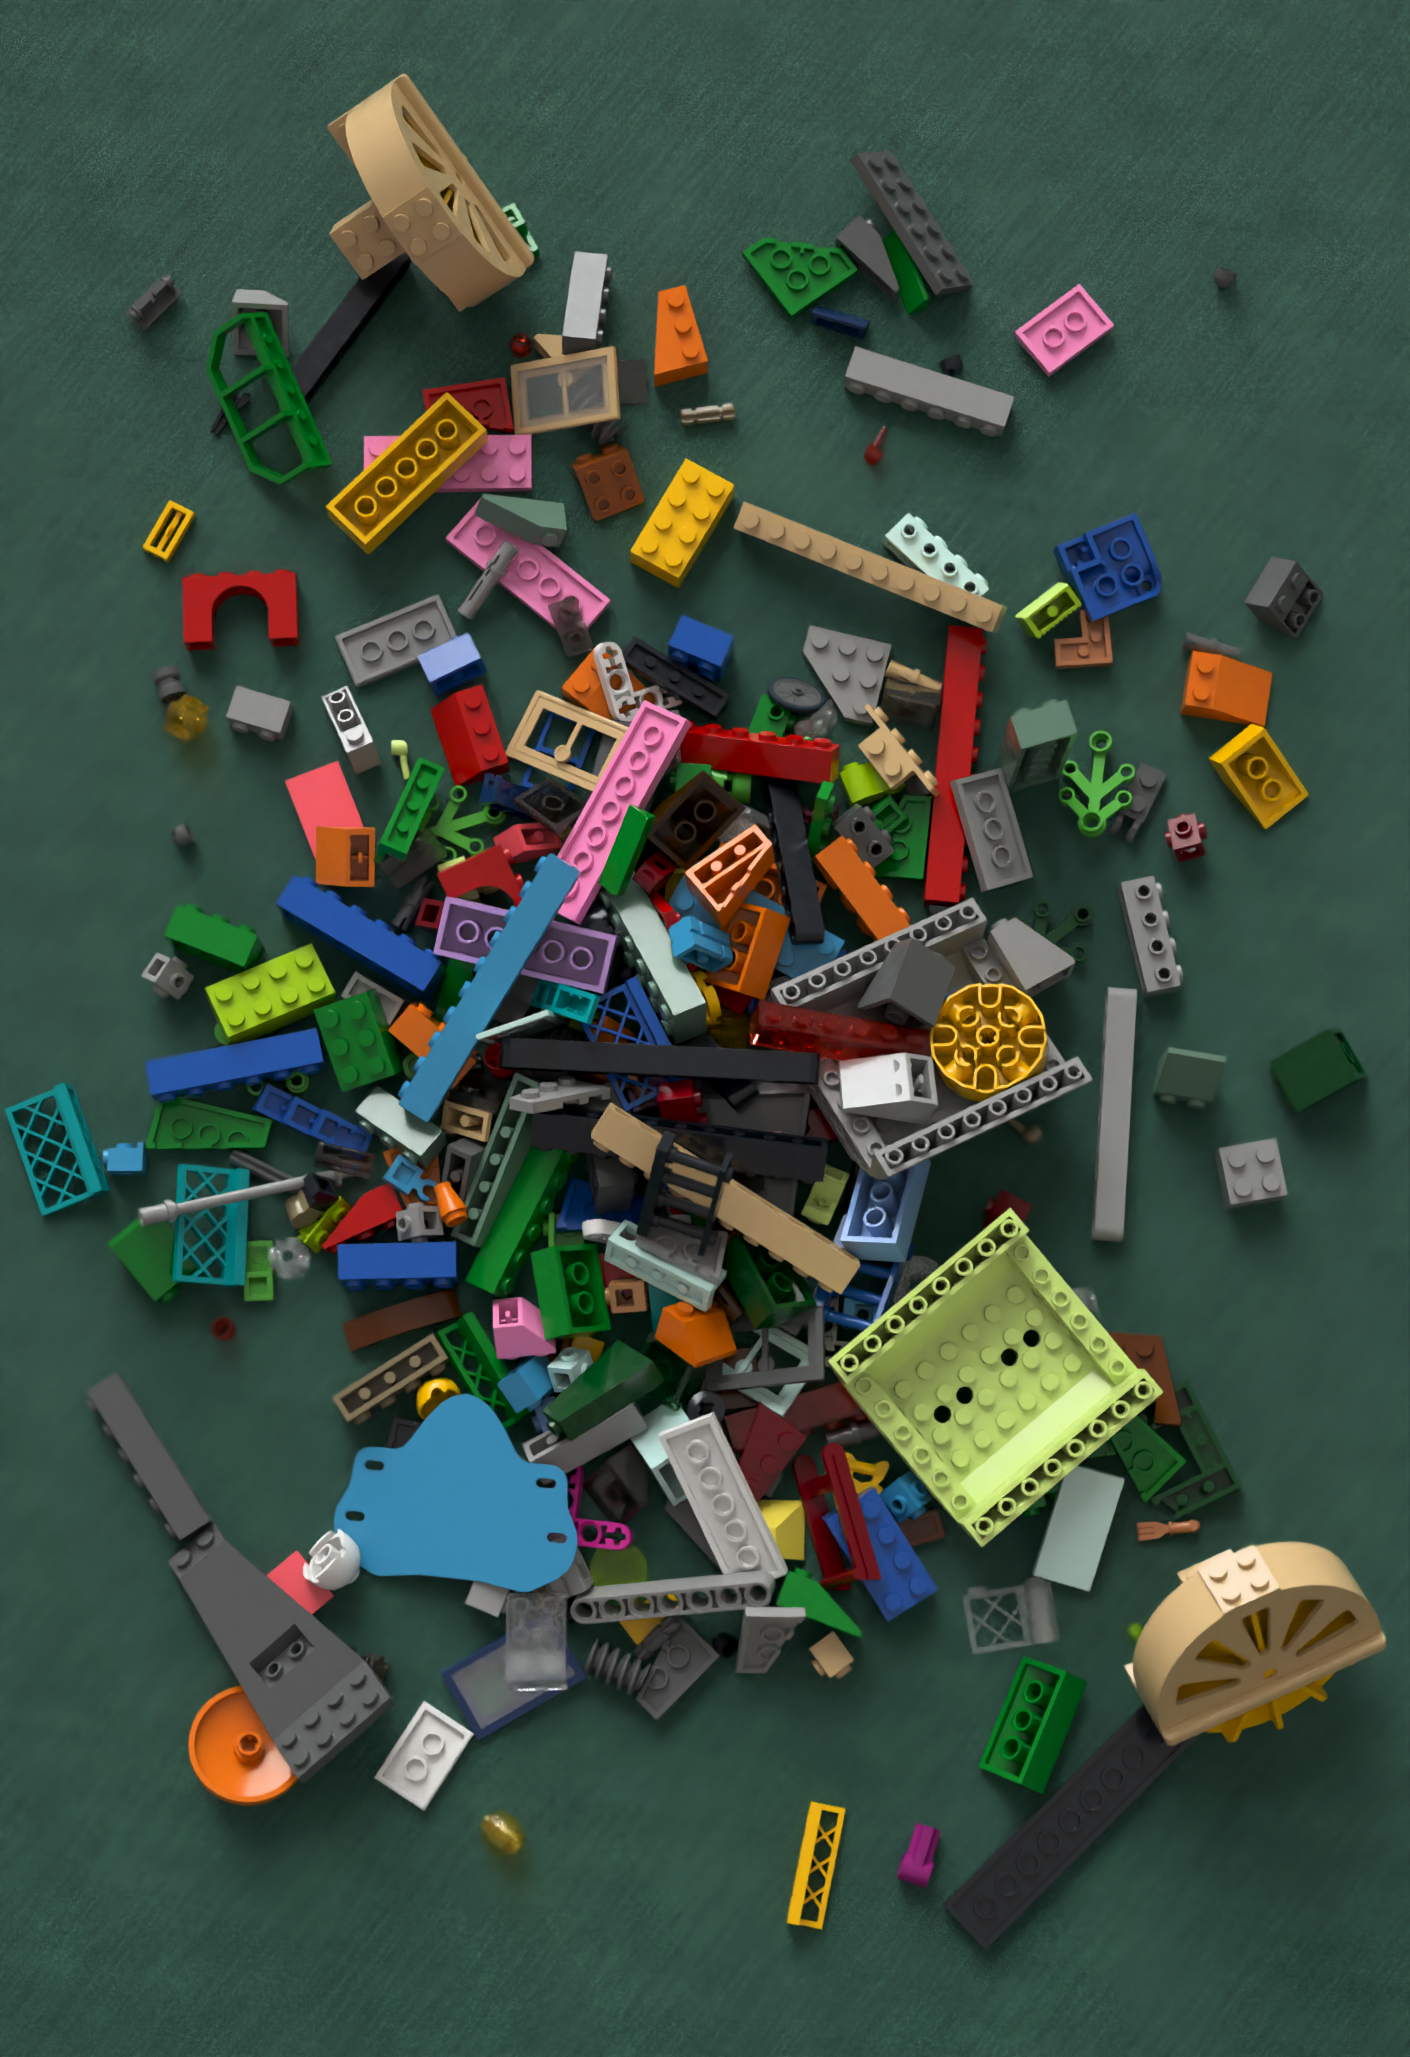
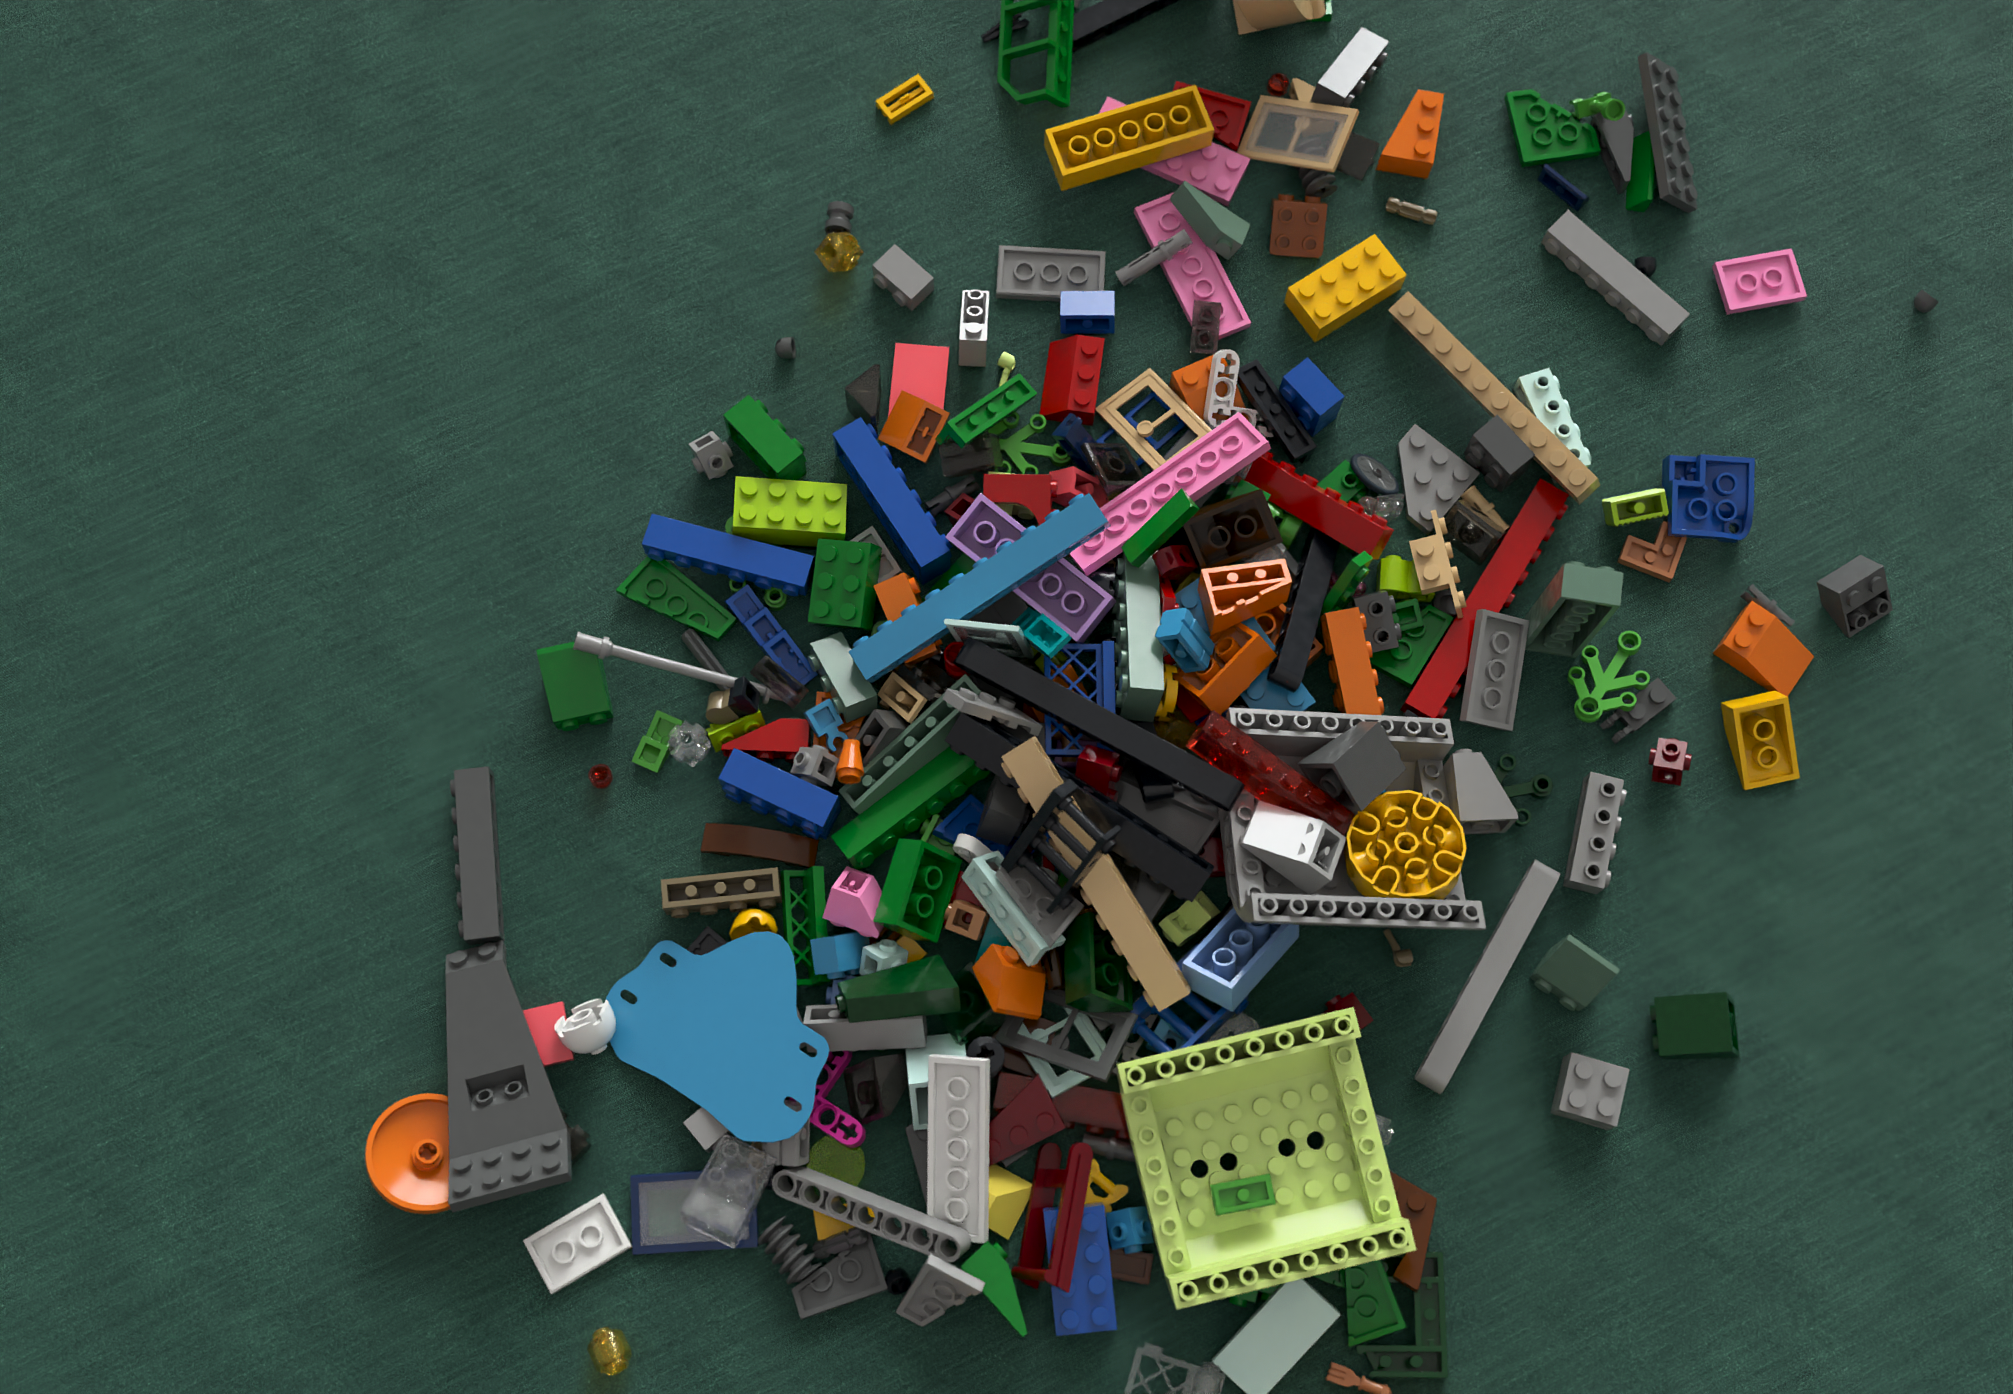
camera: 25 degrees right, 5 degrees down
(81, 1142) = (563, 564): teal fence -> none
(126, 1159) = (595, 592): dark azure brick -> none
(206, 594) = (908, 162): red arch -> none
(233, 1231) = (651, 698): teal fence -> none
(284, 851) = (864, 396): none -> clear smoke slope
(831, 1657) = (988, 1342): tan brick -> none
(837, 222) = (1602, 103): none -> bright green bar
(872, 452) = (1540, 307): clear red hand -> none
(900, 620) = (1498, 454): none -> dark grey brick
(991, 1418) = (1242, 1194): none -> bright green plate

